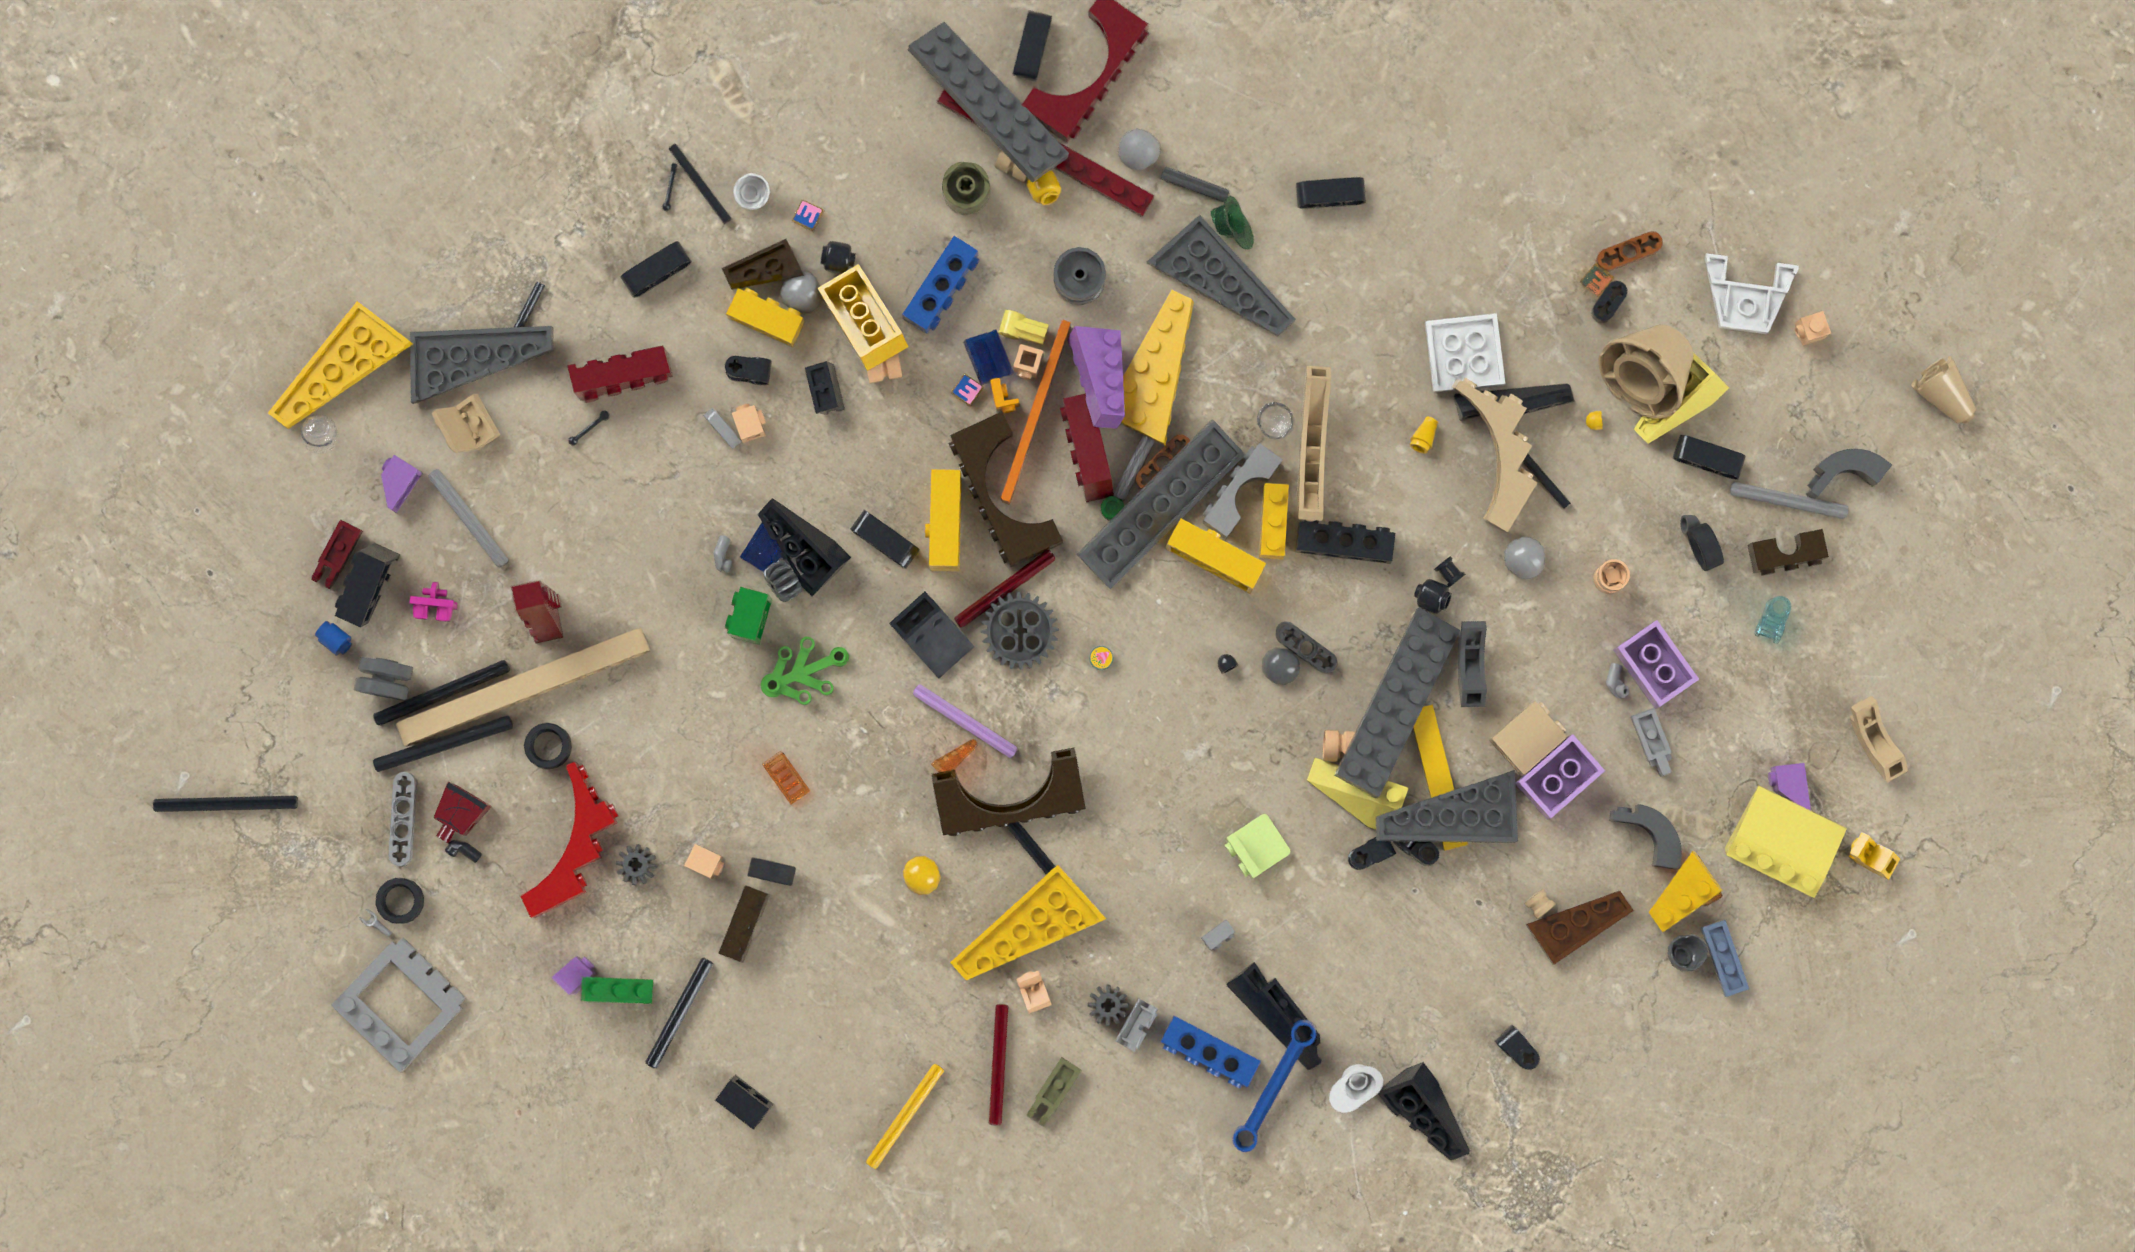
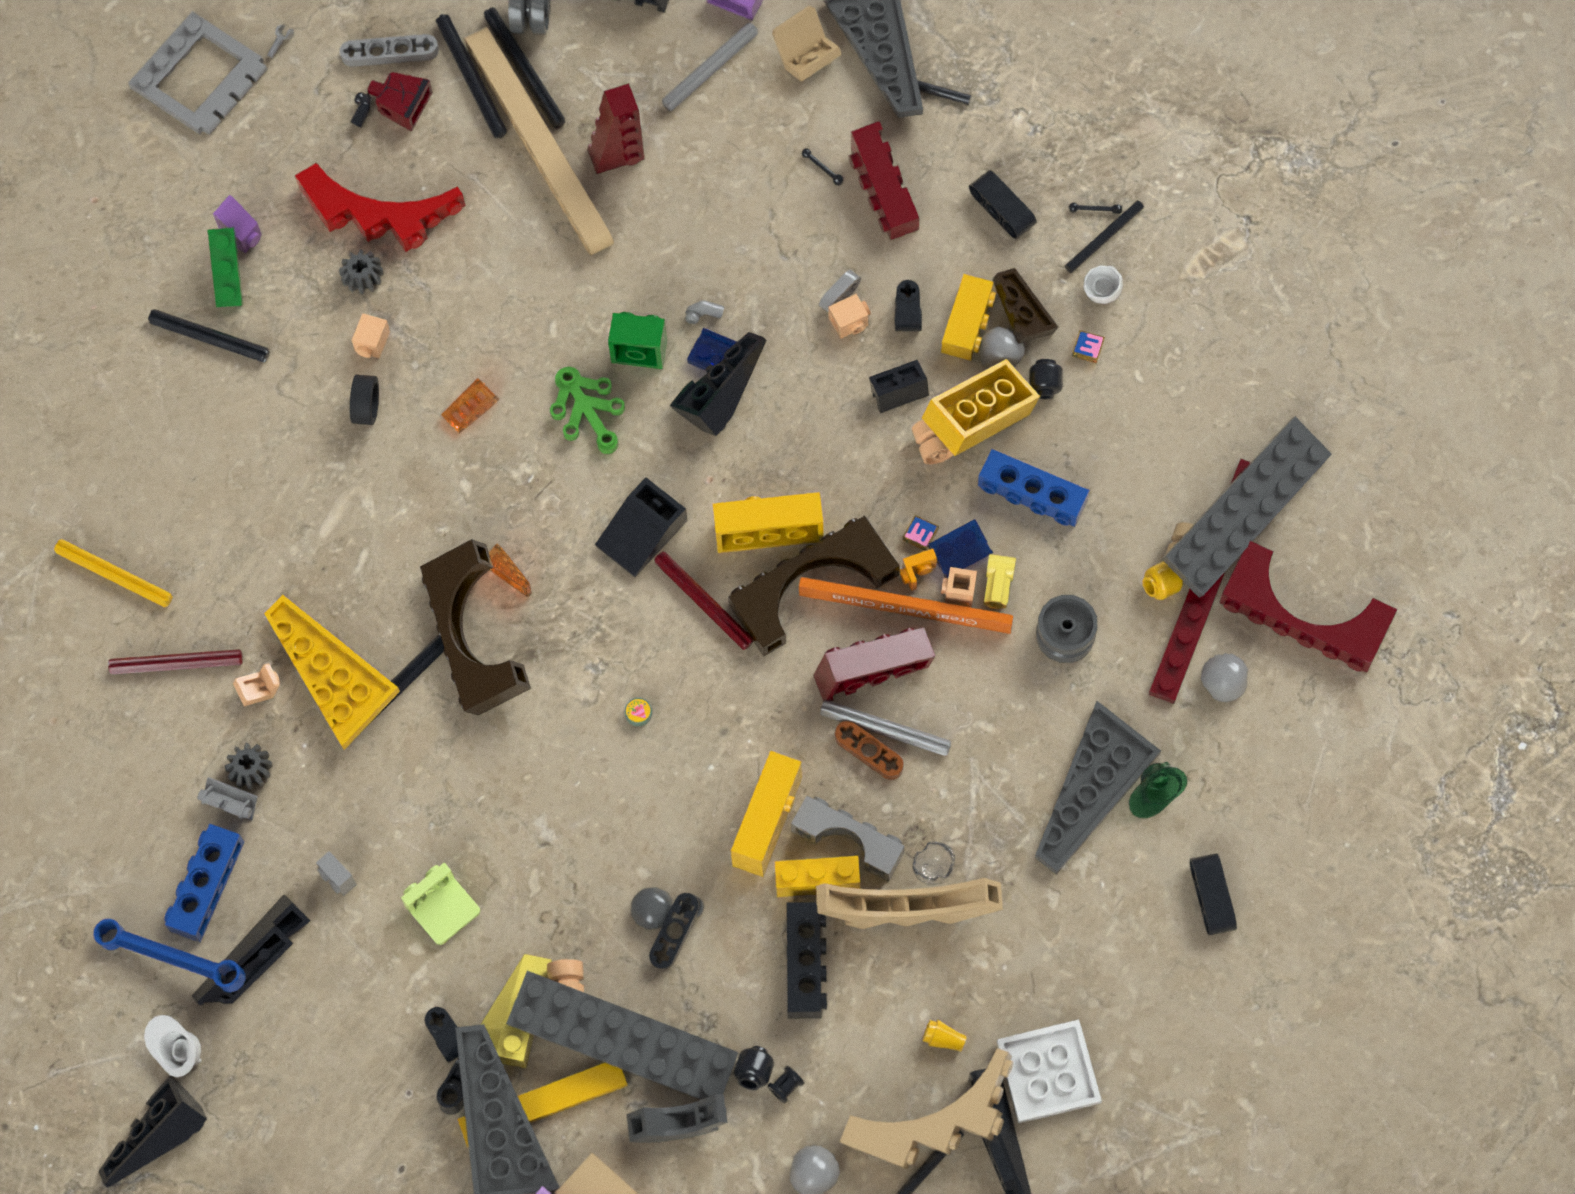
camera: 85 degrees right, 15 degrees down
(388, 886) = (297, 42): black tyre -> none
(422, 604) = (612, 35): dark pink hips -> none
(534, 733) = (474, 154): black tyre -> none
(743, 923) = (325, 385): dark brown arch -> none
(744, 1102) = (118, 409): black hinge -> none
(782, 581) = (680, 369): dark grey gear -> none
(884, 539) = (741, 468): black beam -> none
(921, 875) = (376, 555): yellow hair -> none
(965, 721) = (550, 578): lavender axle -> none
(970, 175) = (1133, 498): olive brick -> none
(1032, 45) = (1322, 548): black beam -> none
(1041, 629) = (660, 642): dark grey gear -> none
(1055, 1088) = (152, 723): olive hinge -> none
(1101, 373) = (964, 660): medium lavender wedge -> none
(1111, 506) = (809, 702): green tile -> none
(1155, 370) = (965, 724): yellow wing -> none
(1161, 504) = (825, 751): dark grey plate -> none
(1195, 184) = (1196, 743): dark grey axle -> none
(1226, 663) = (647, 847): black hinge -> none

